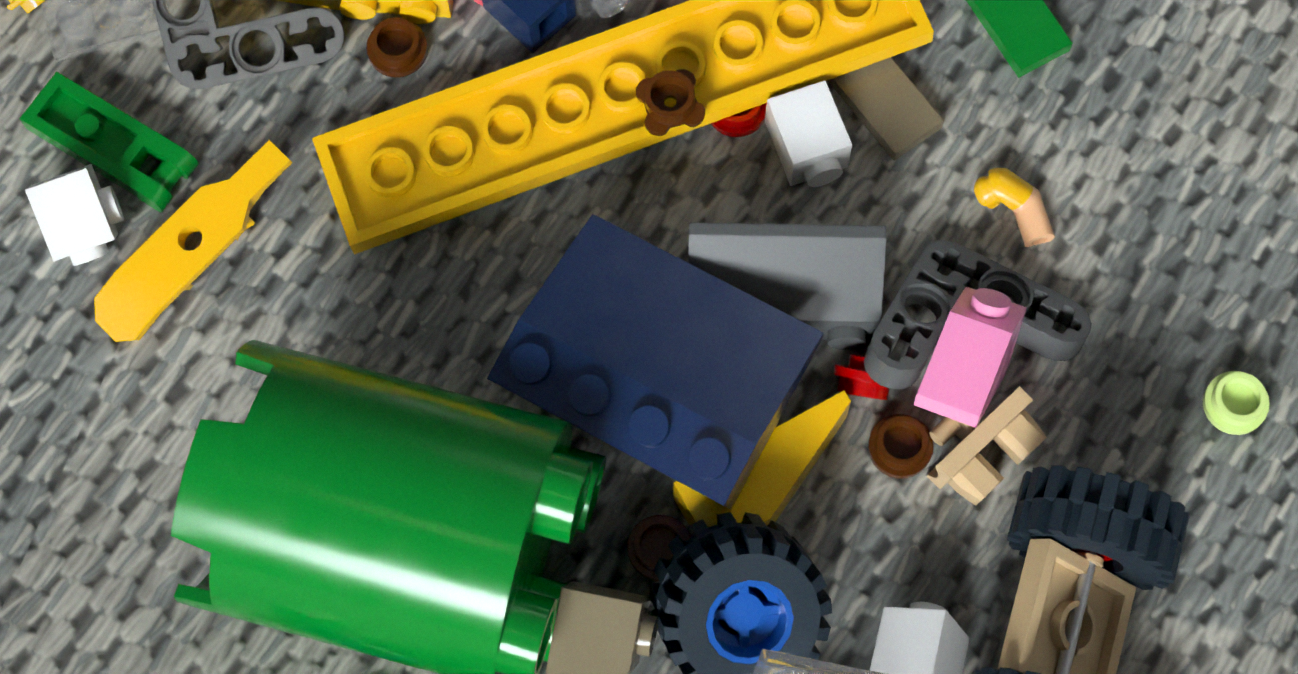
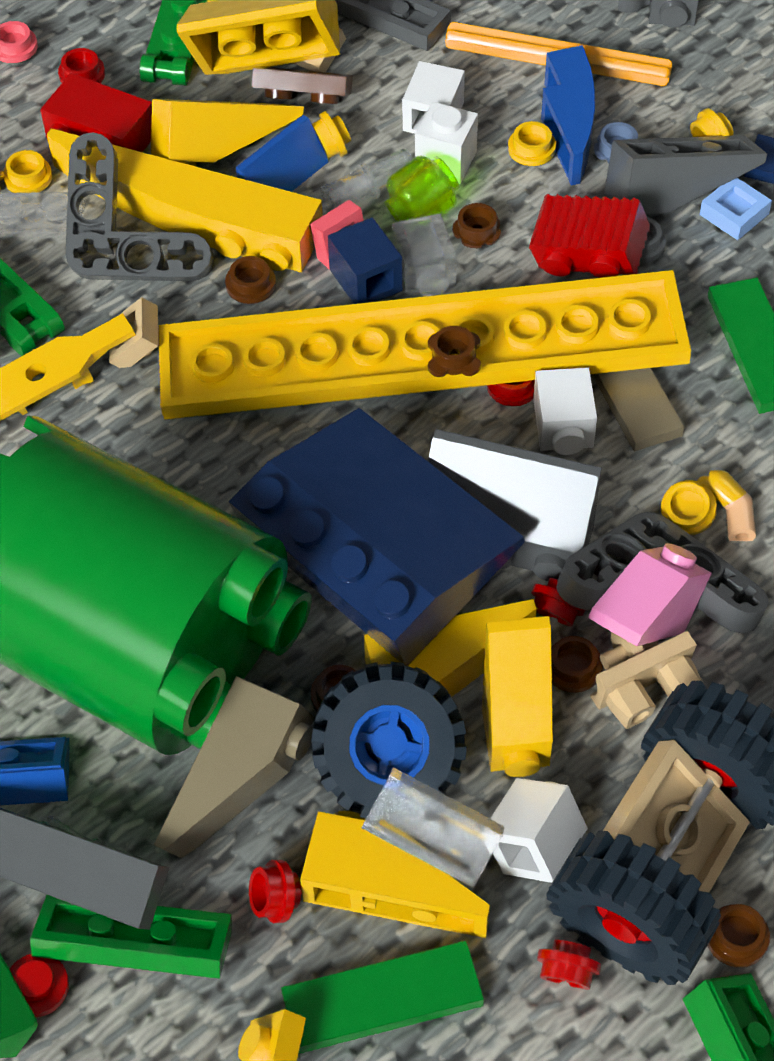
camera: 15 degrees right, 15 degrees down
(294, 139) = (144, 321): none -> tan plate
(866, 523) = (518, 695): none -> yellow slope
(975, 220) = (689, 506): none -> yellow plate

